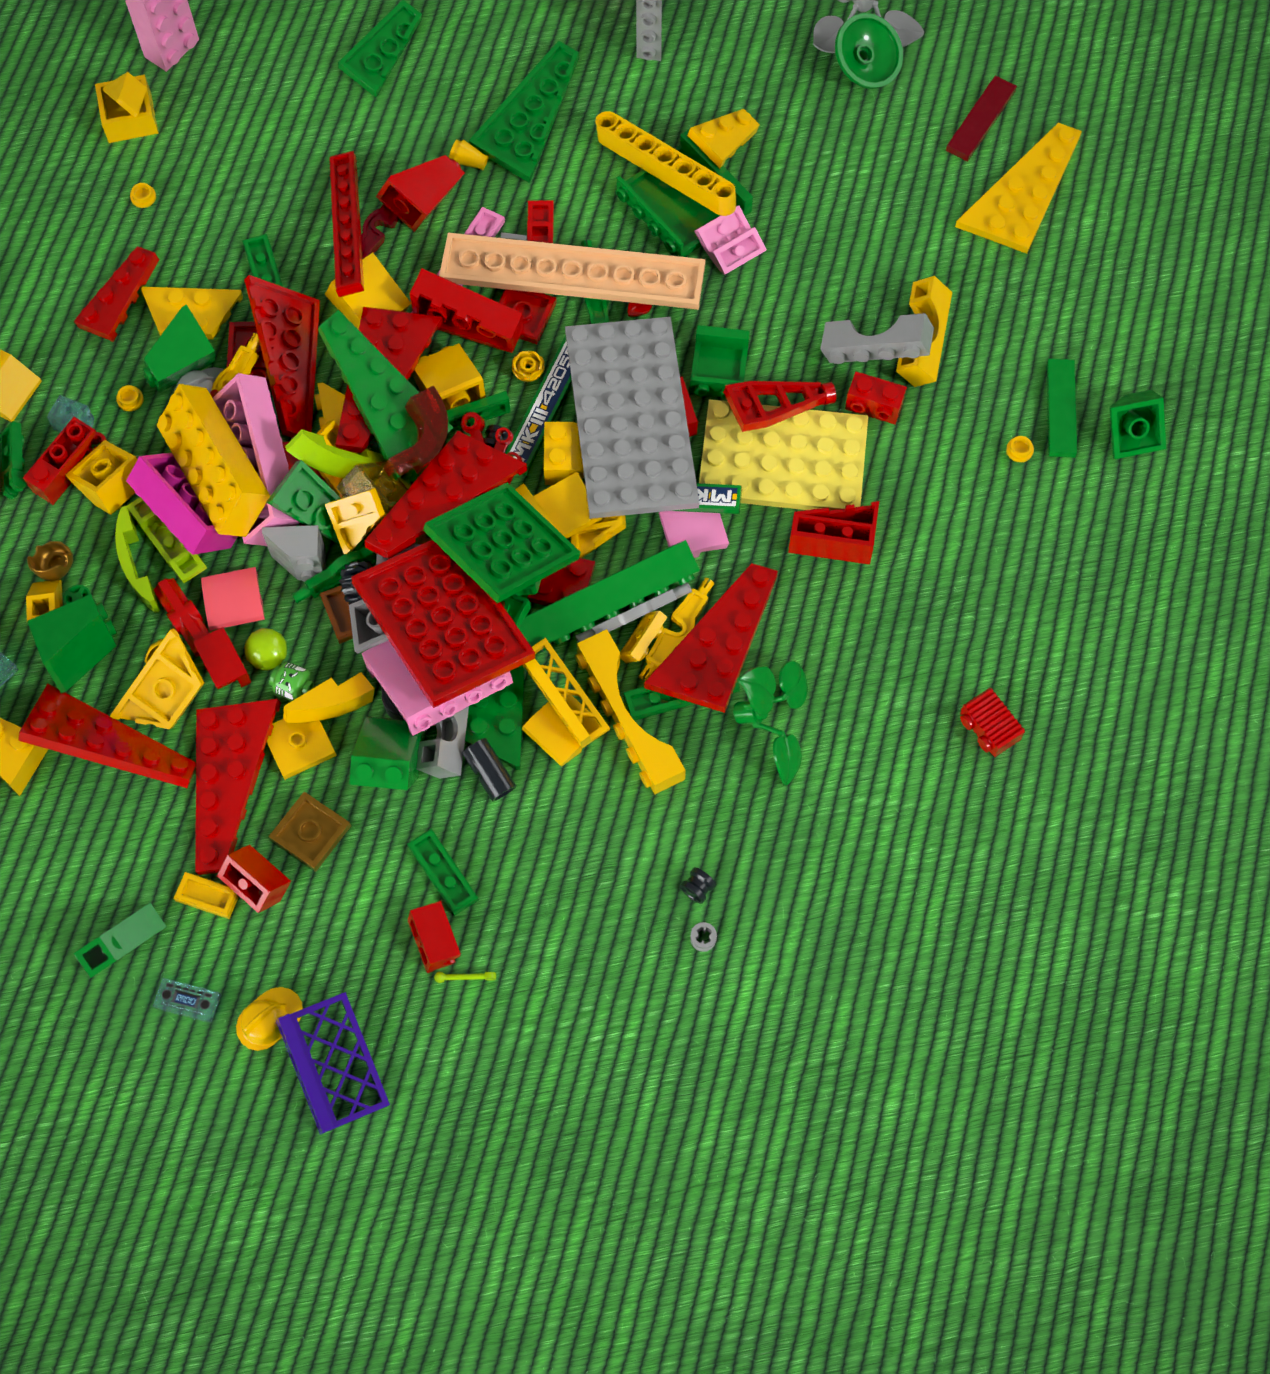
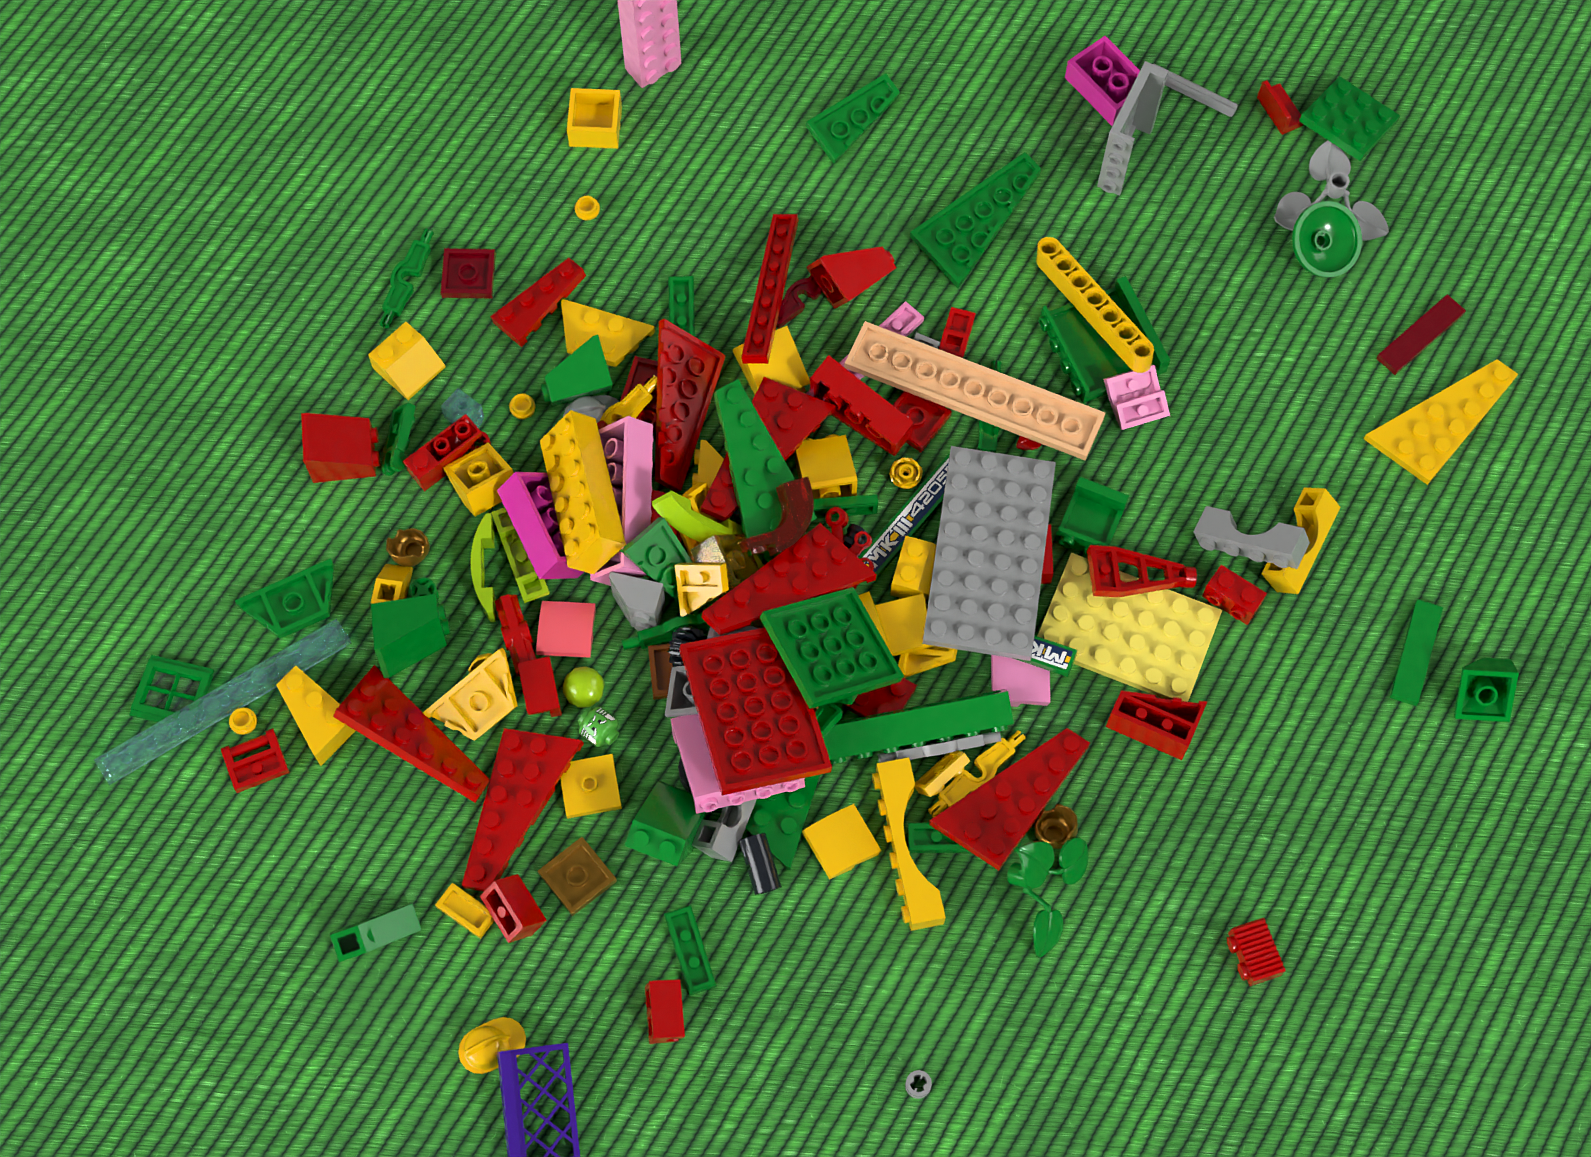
camera: 15 degrees right, 0 degrees up
(39, 285) = (468, 273): none -> dark red plate
(127, 92) = (598, 106): yellow slope -> none
(186, 1000) = (421, 1006): clear light blue tile -> none
(330, 700) = (629, 755): yellow slope -> none
(440, 977) = (660, 1052): lime hinge -> none
(468, 155) = (905, 245): yellow cone -> none
(558, 702) = (841, 815): yellow fence -> none
(698, 885) = (926, 1033): black wheel -> none
(724, 135) = (1159, 289): yellow wing -> none
(770, 653) = (1056, 826): none -> pearl gold hair
(1020, 449) = (1362, 683): yellow plate -> none

